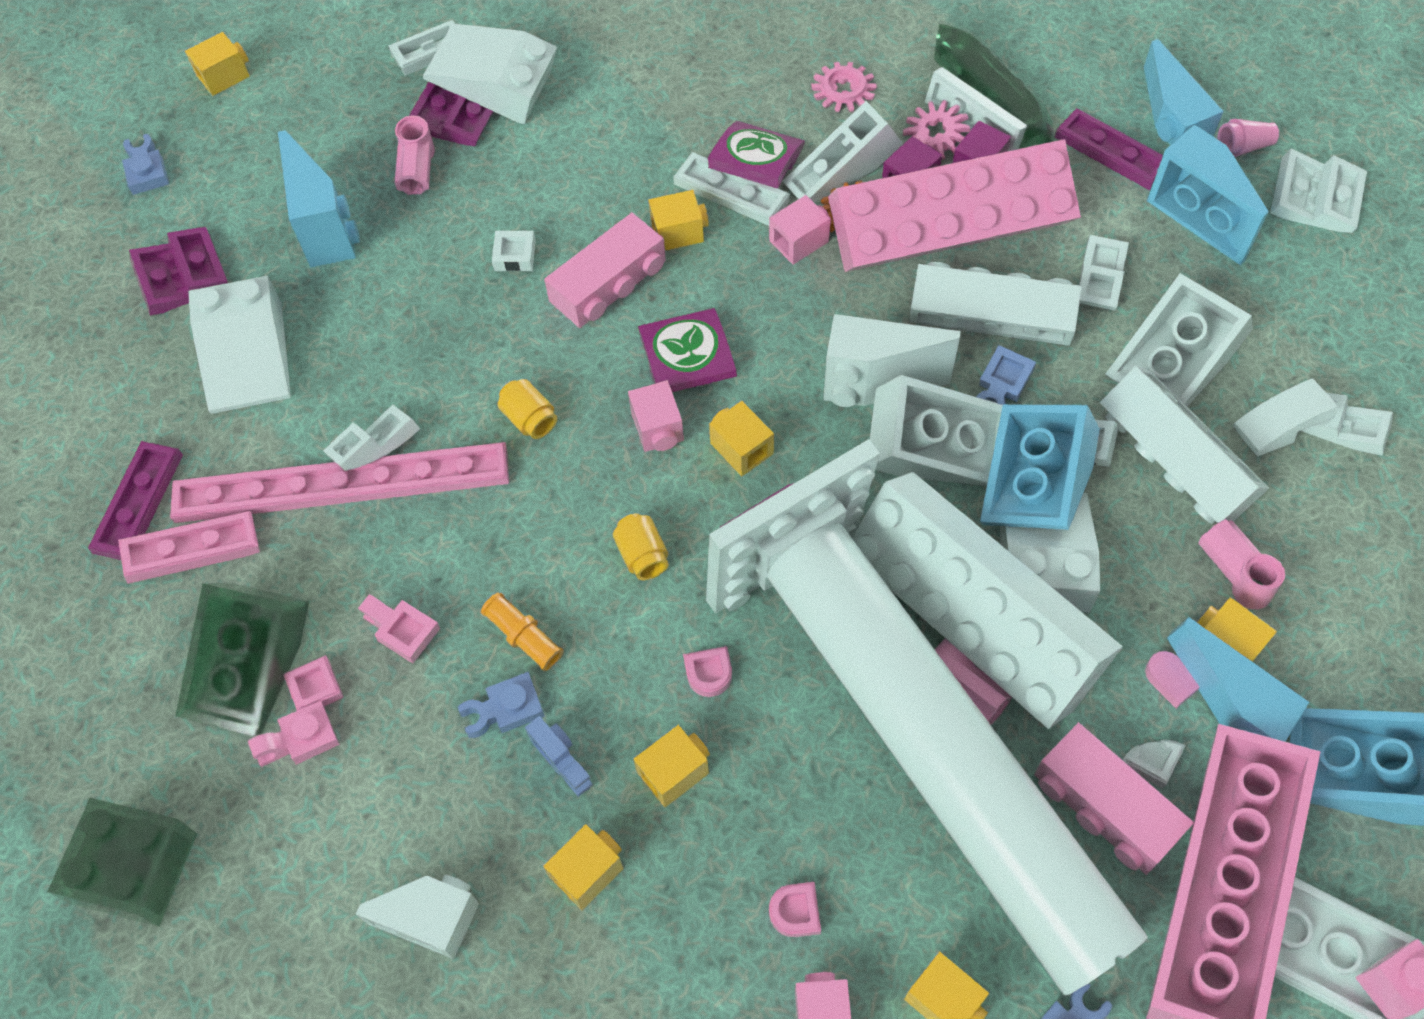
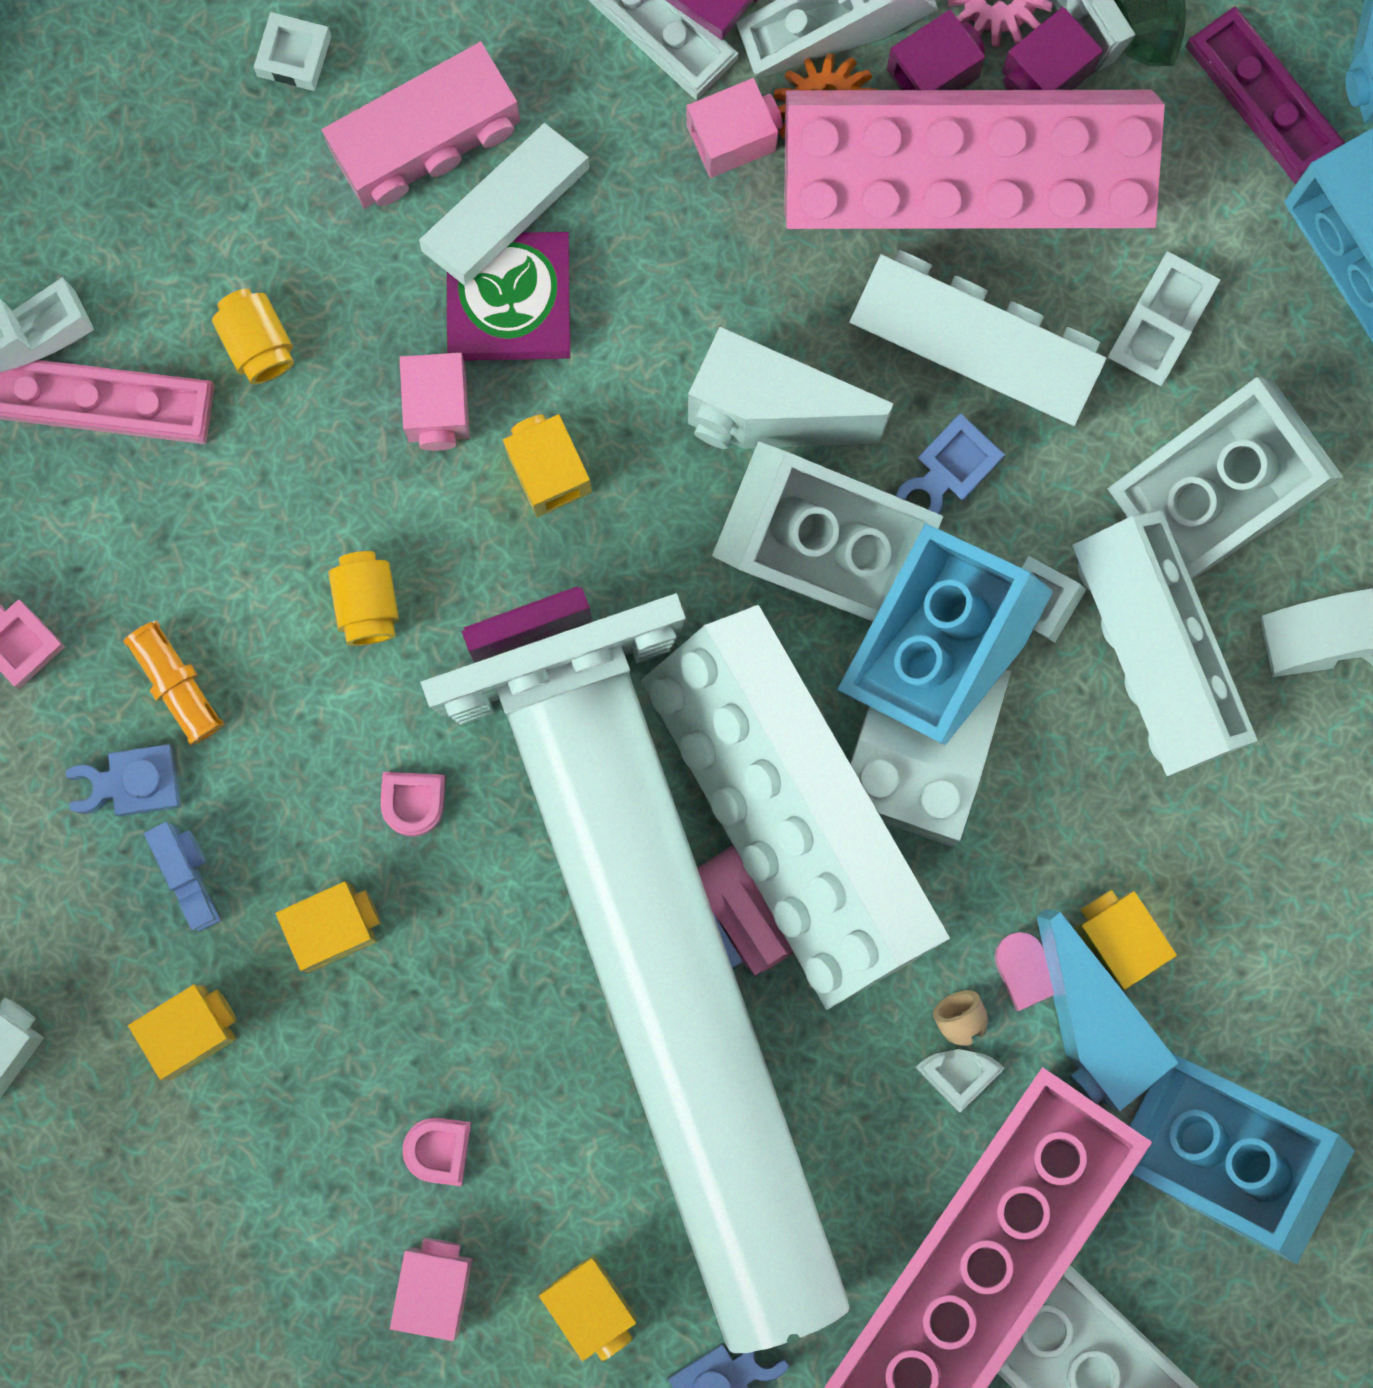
camera: 10 degrees right, 20 degrees up
(669, 300) = (504, 204): none -> light aqua tile
(678, 219) = (552, 62): yellow brick -> none
(1111, 799) = (879, 1118): bright pink brick -> none
(1142, 719) = (961, 1017): none -> tan hinge
(1241, 563) = (1178, 829): bright pink piece -> none

